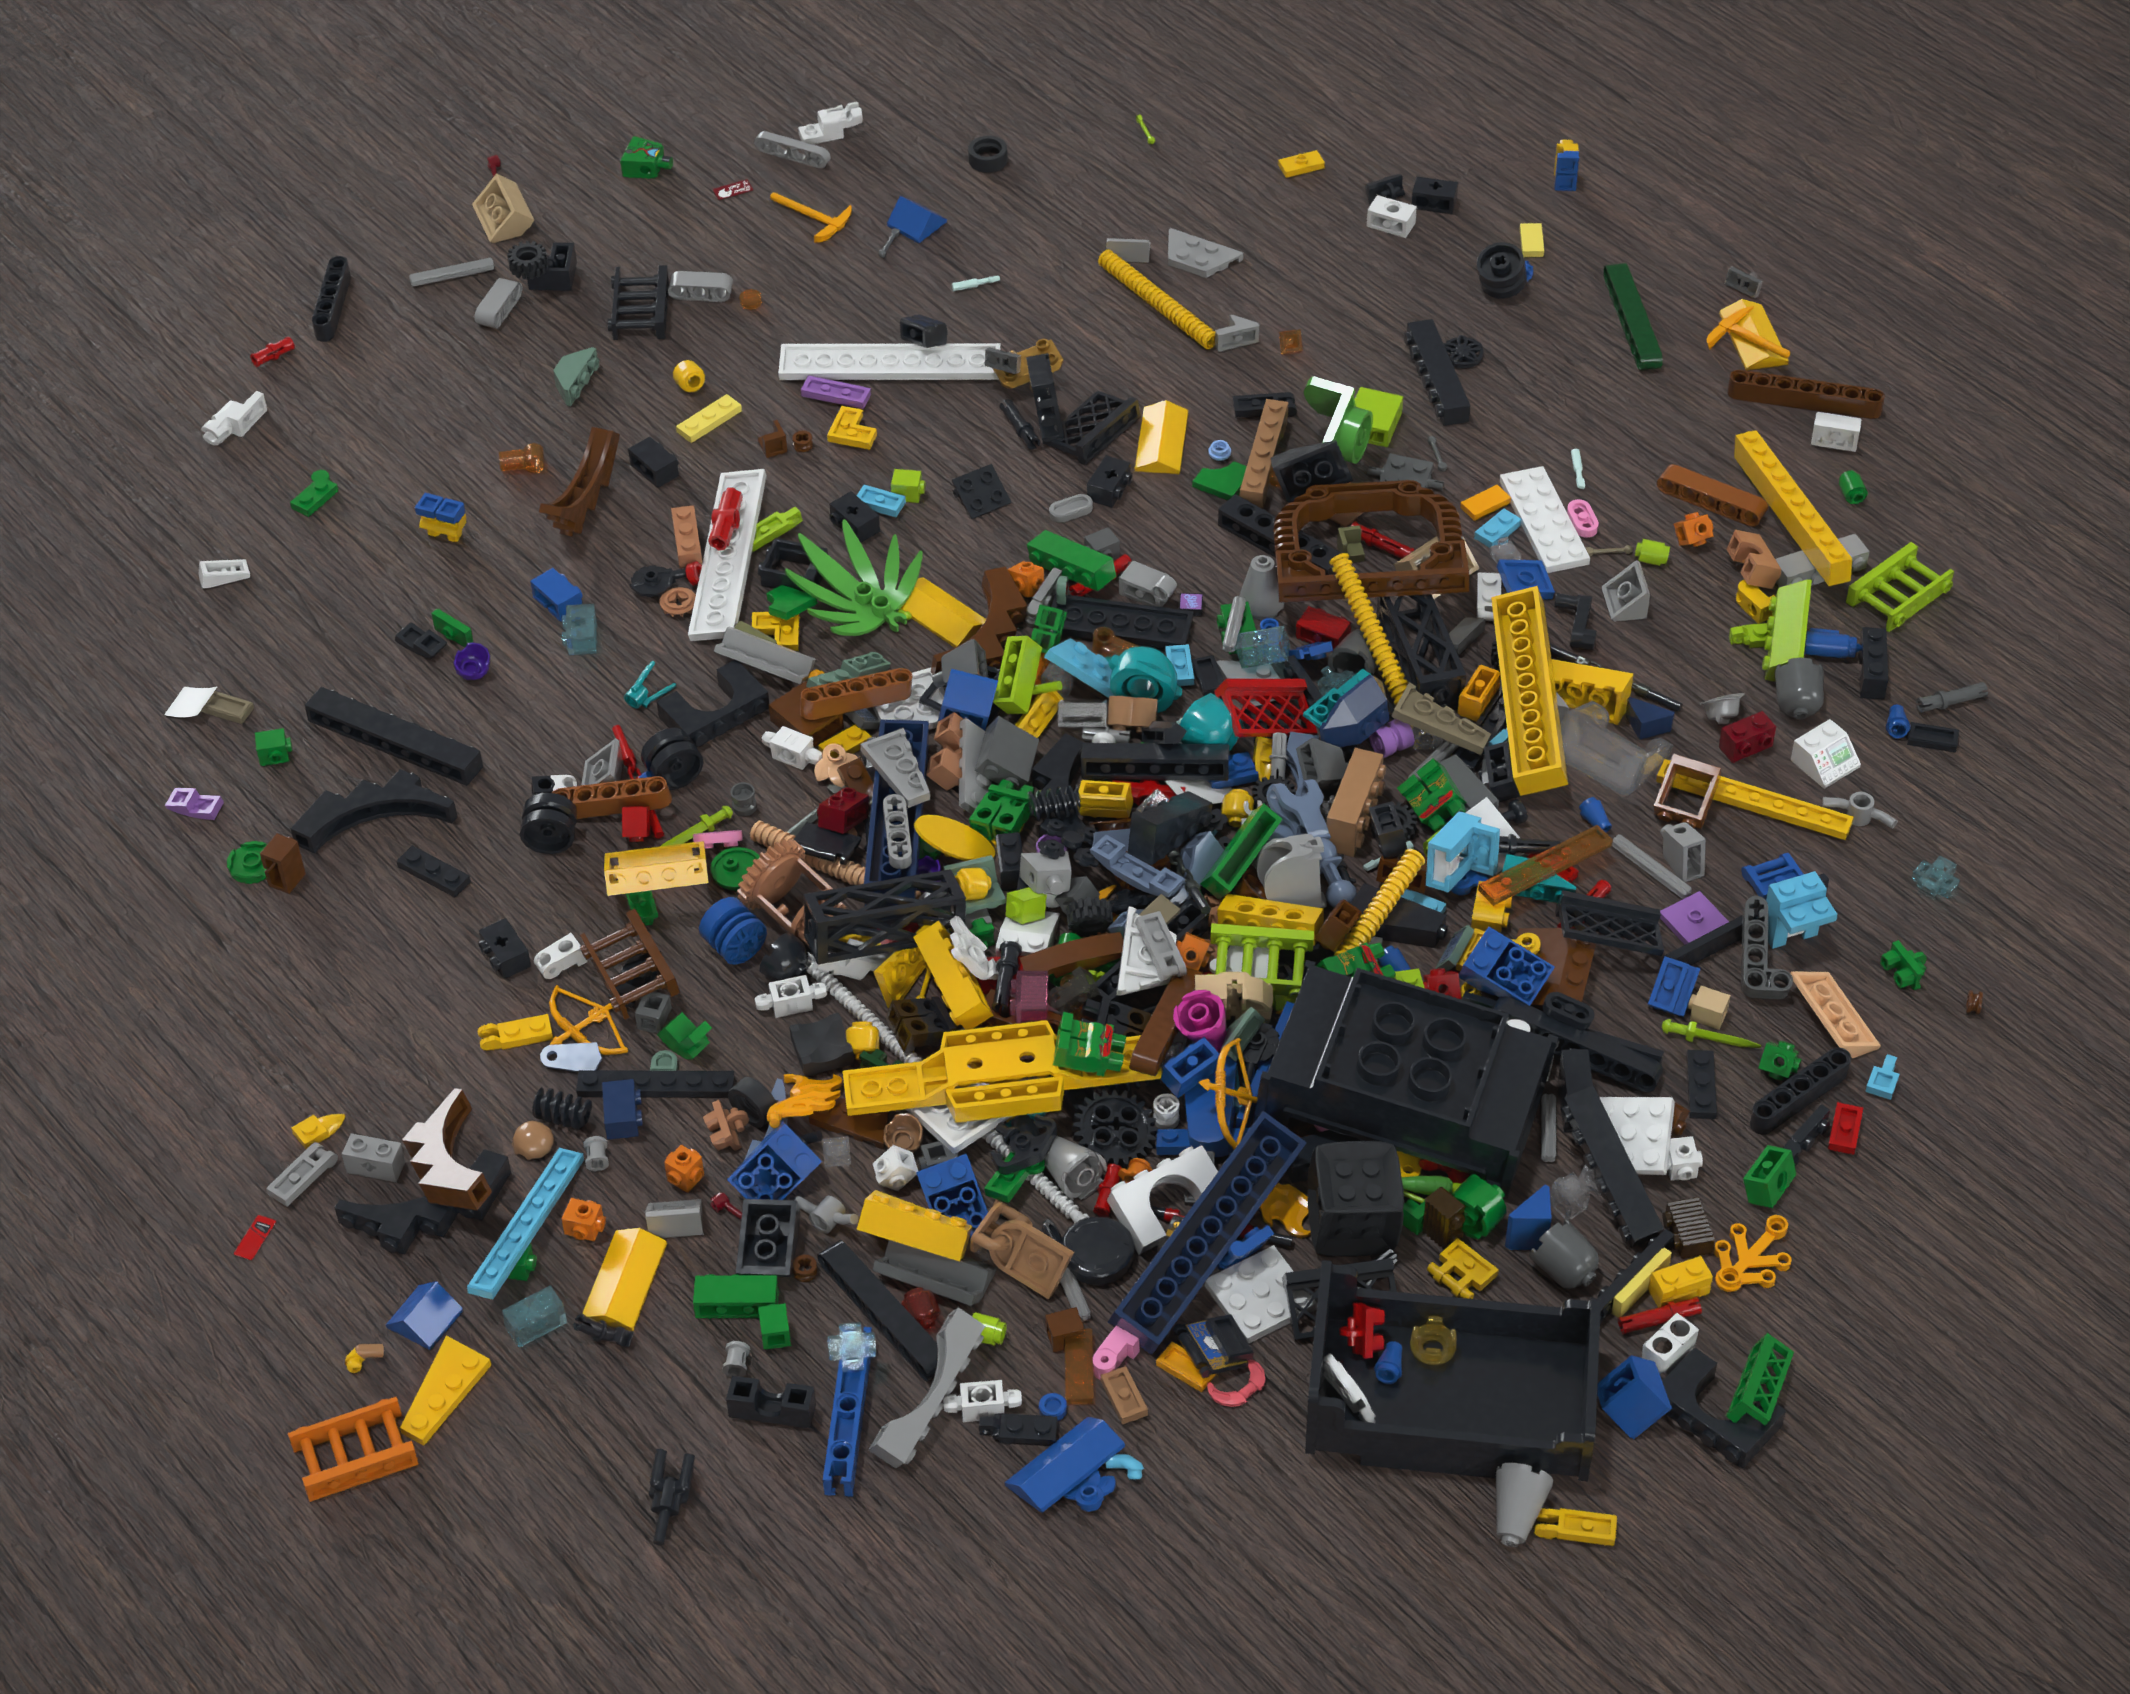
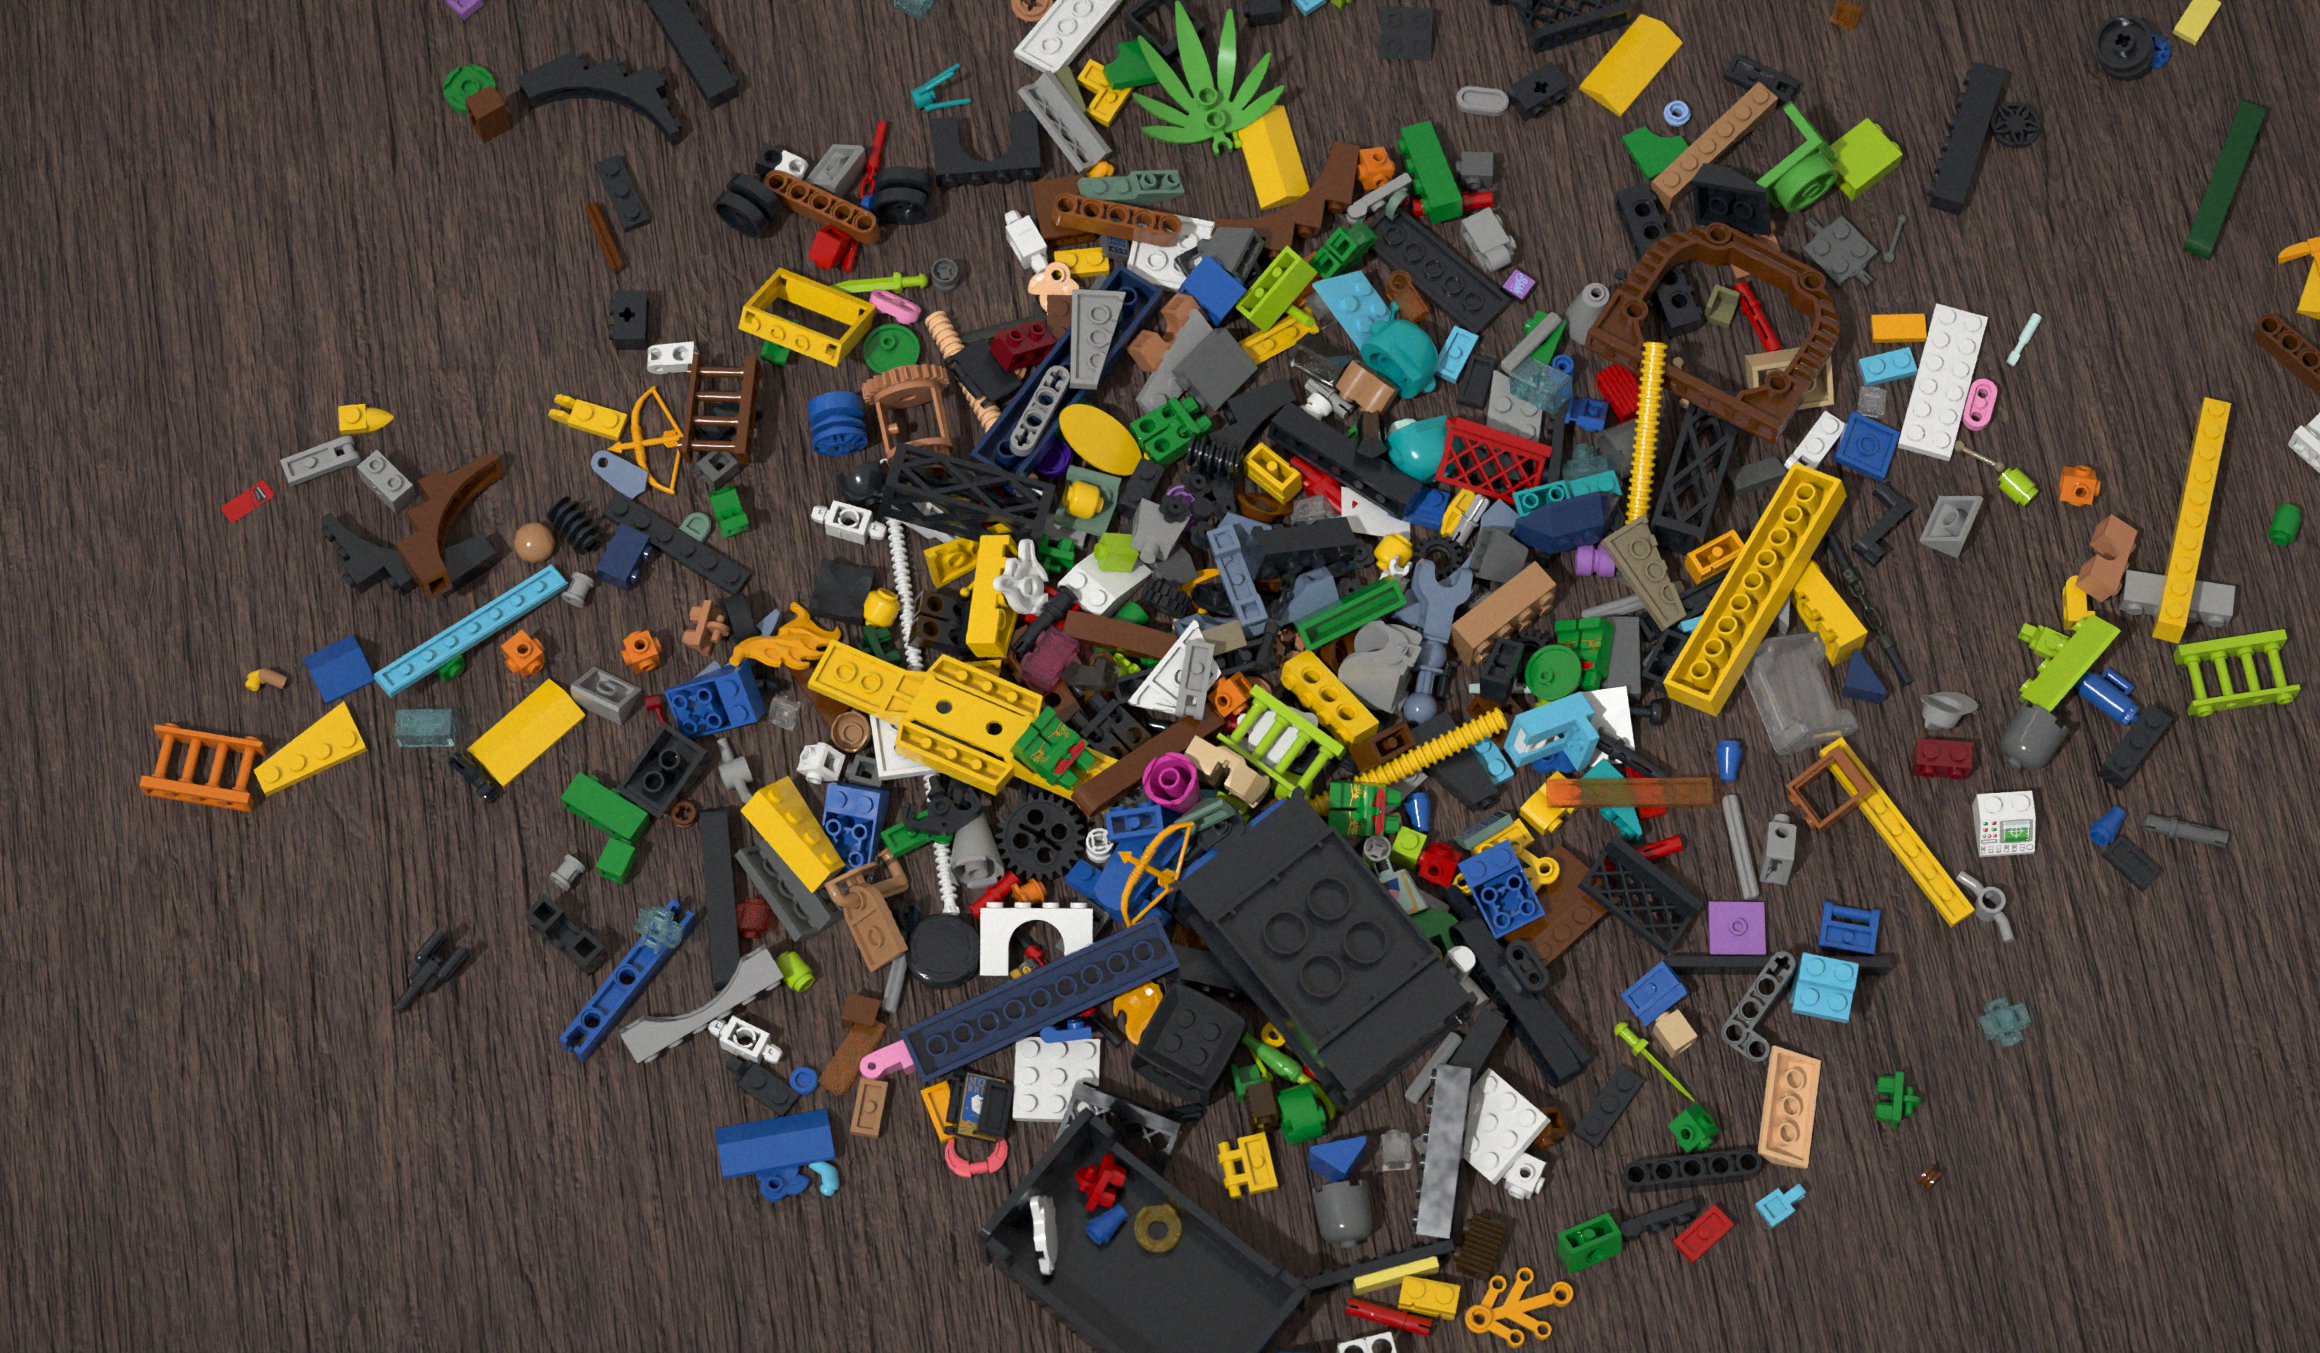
camera: 30 degrees right, 20 degrees up
(440, 906) = (604, 237): none -> reddish brown axle
(1425, 814) = (1553, 672): none -> green piece
(1712, 495) = (2133, 452): dark orange beam -> none

